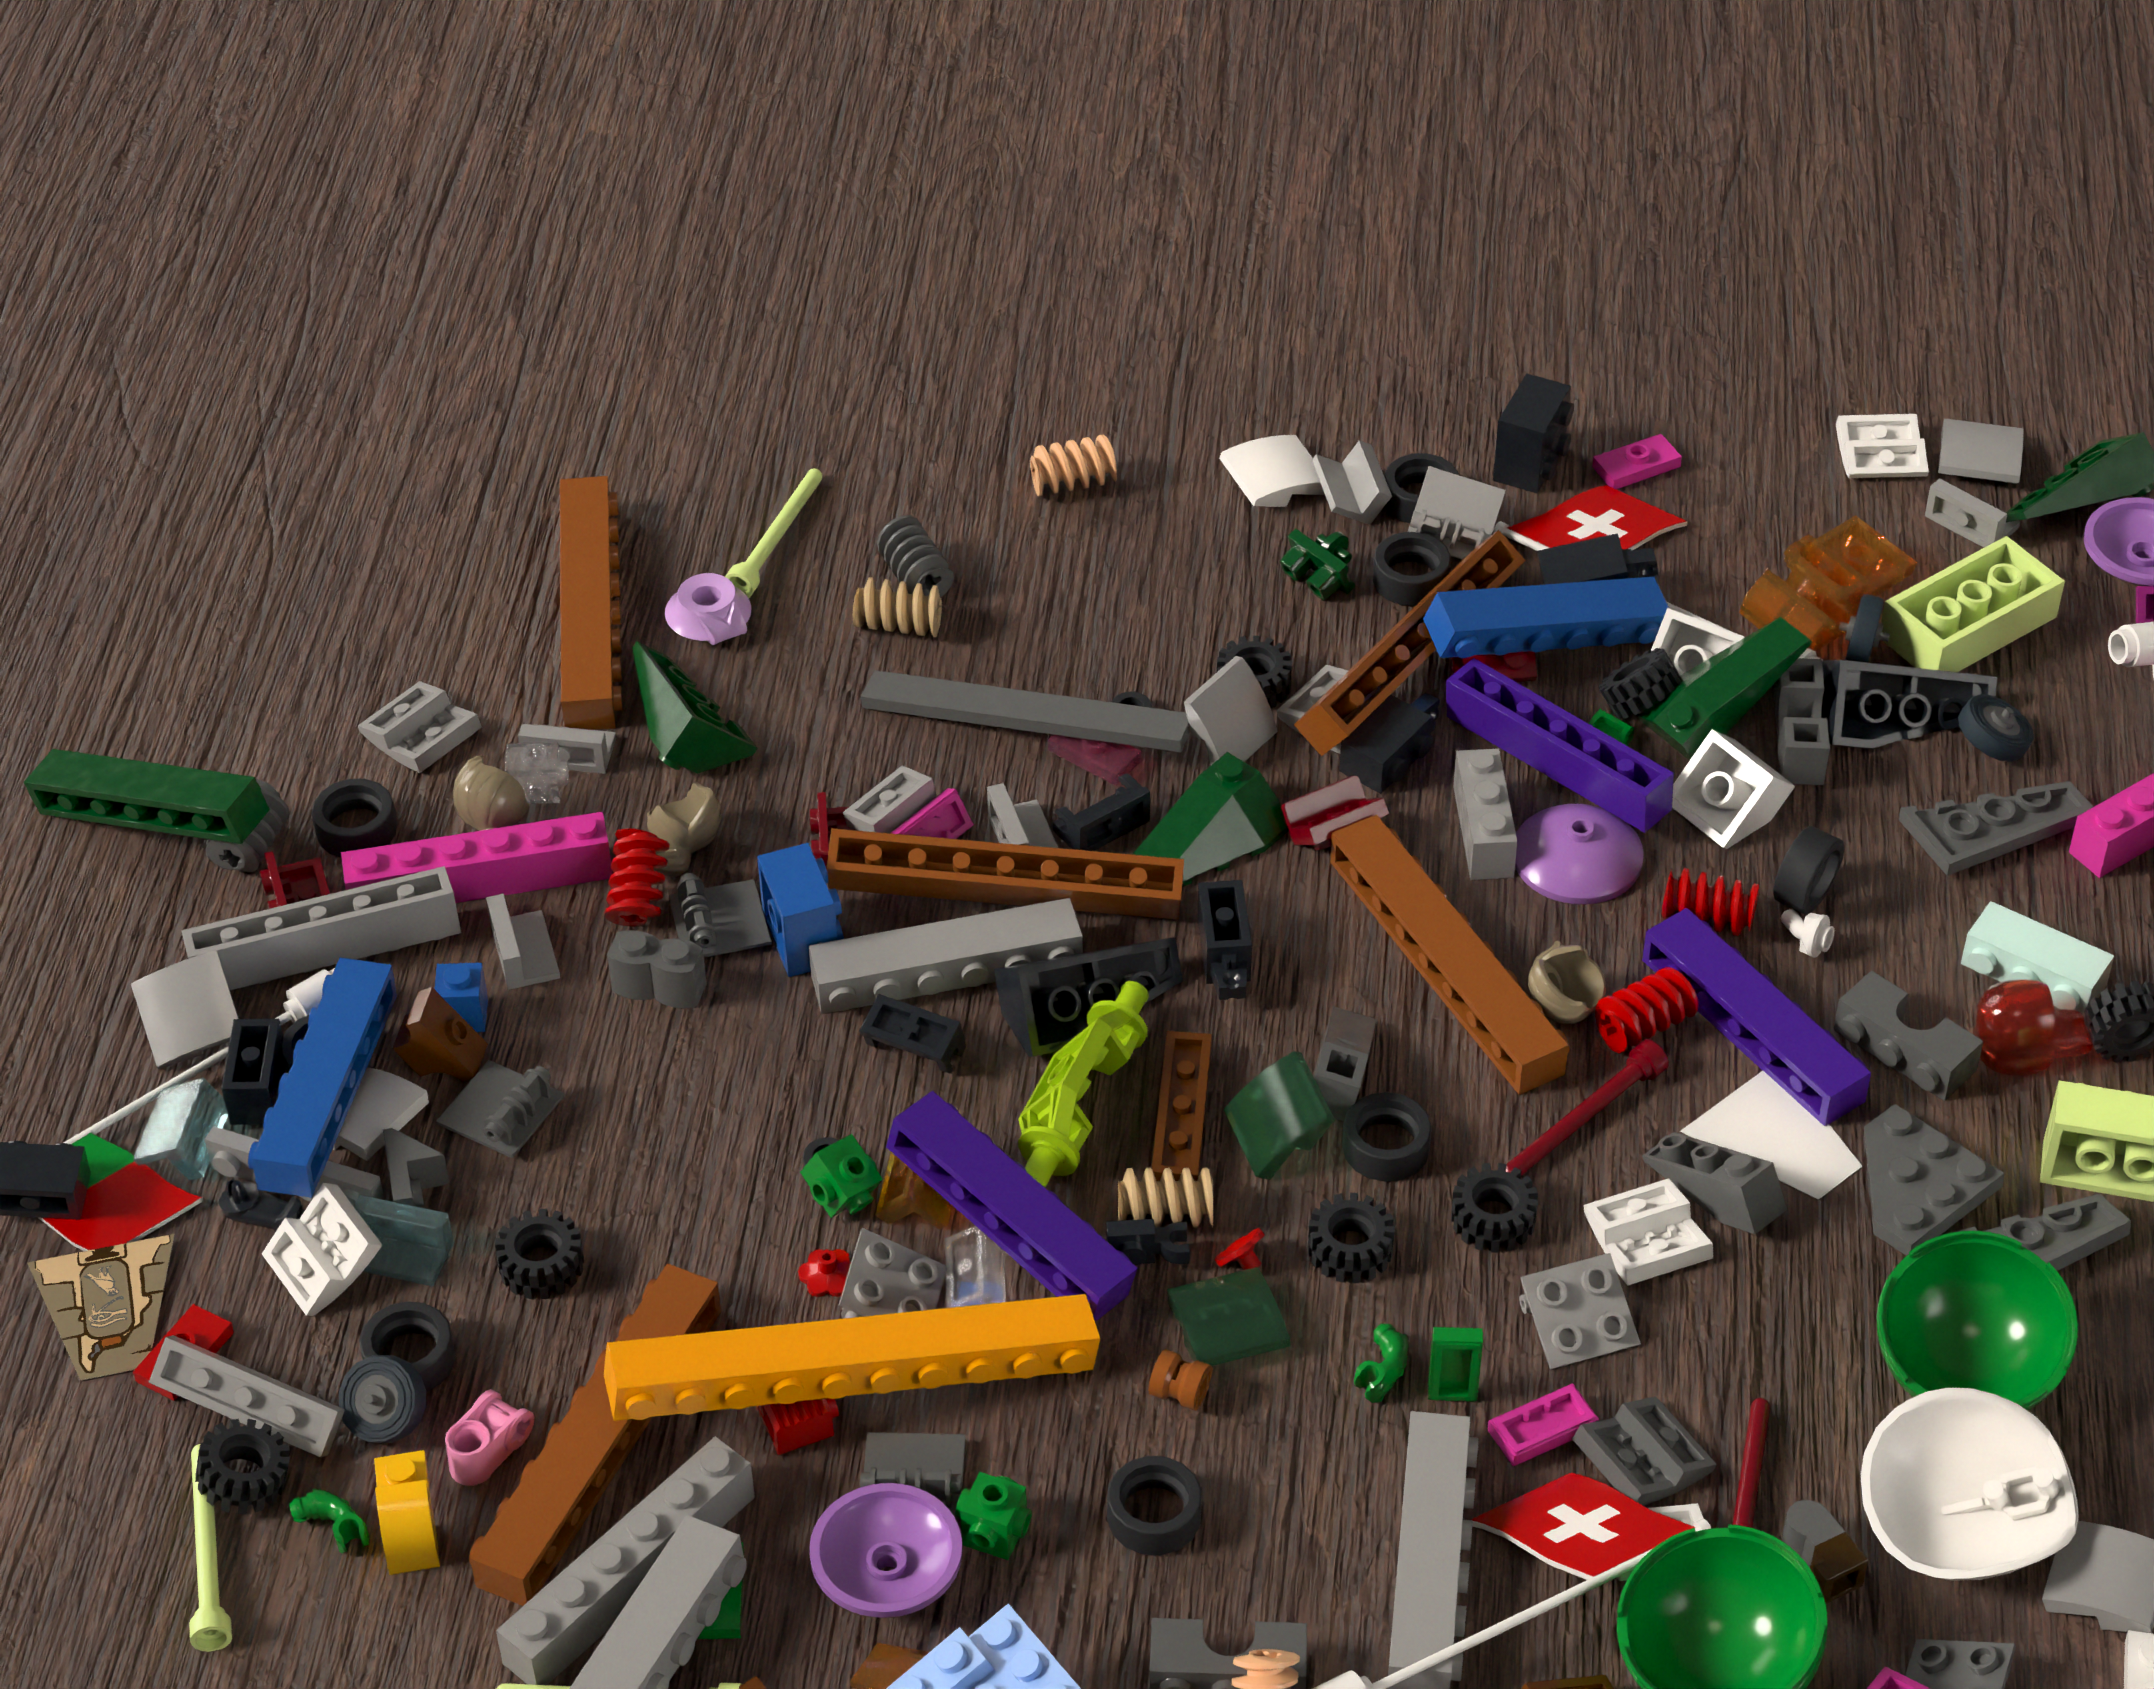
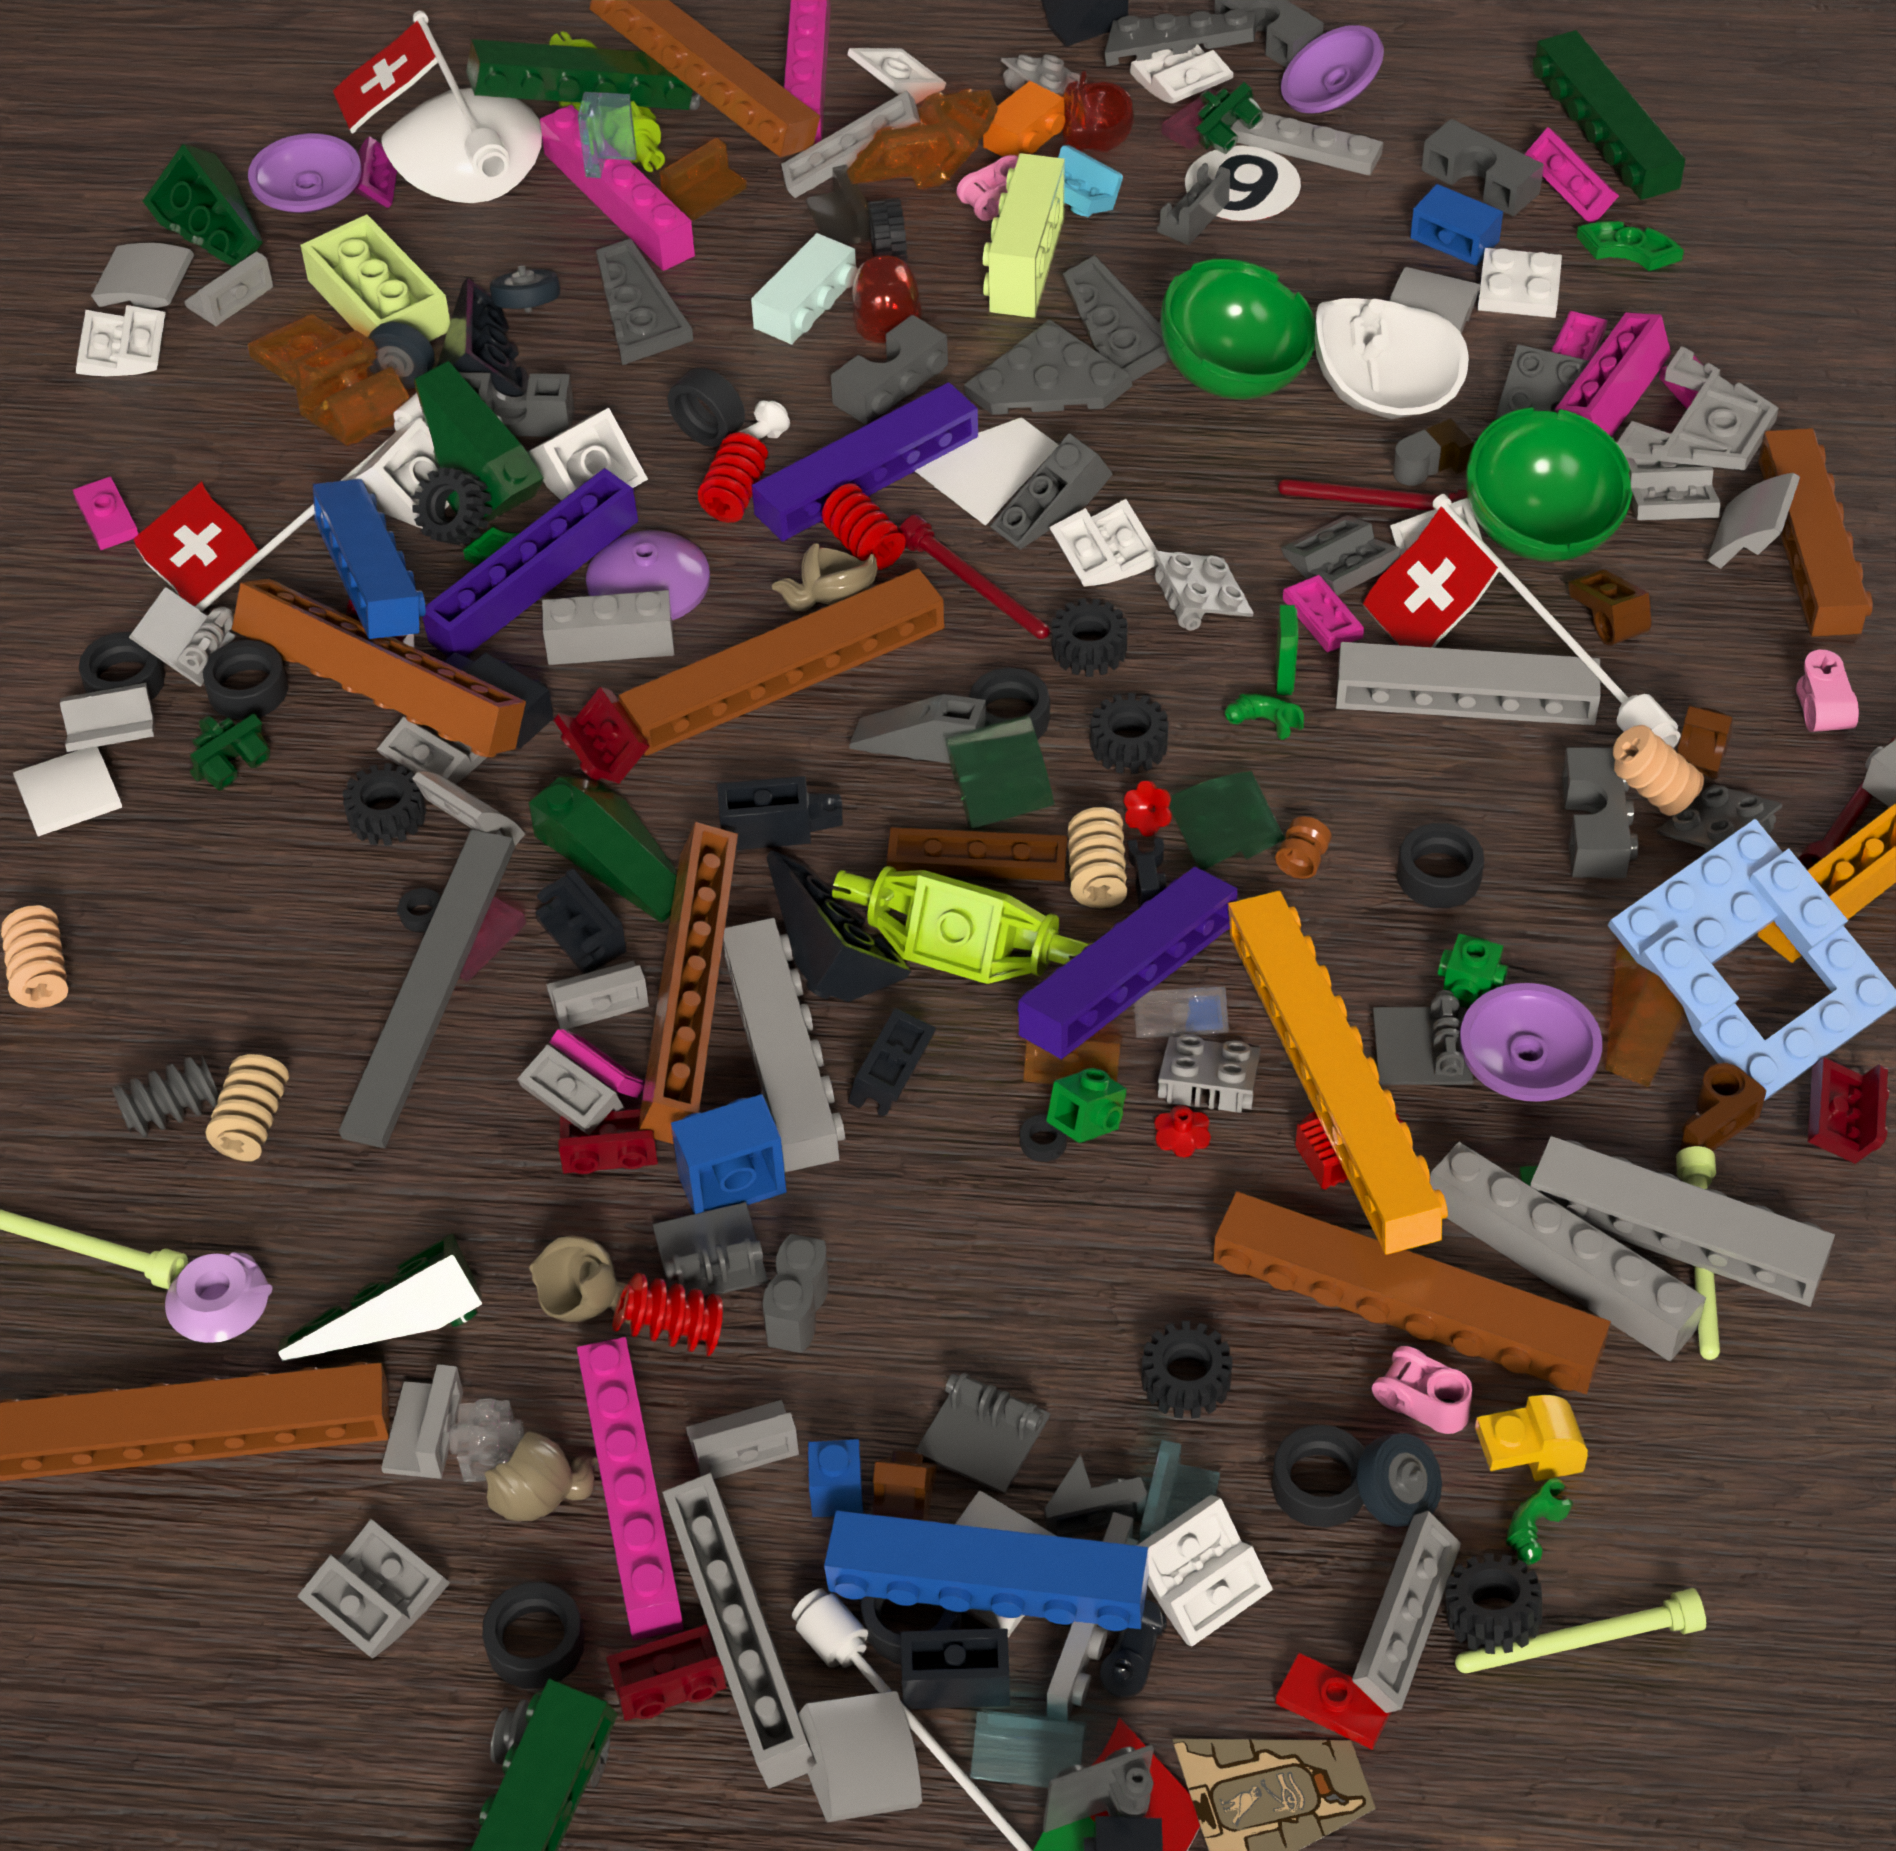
camera: 90 degrees left, 5 degrees up
(98, 1160) = (1116, 1785): none -> dark grey hinge
(1533, 433) = (74, 569): black brick -> none
(1595, 561) = (287, 537): black hinge -> none

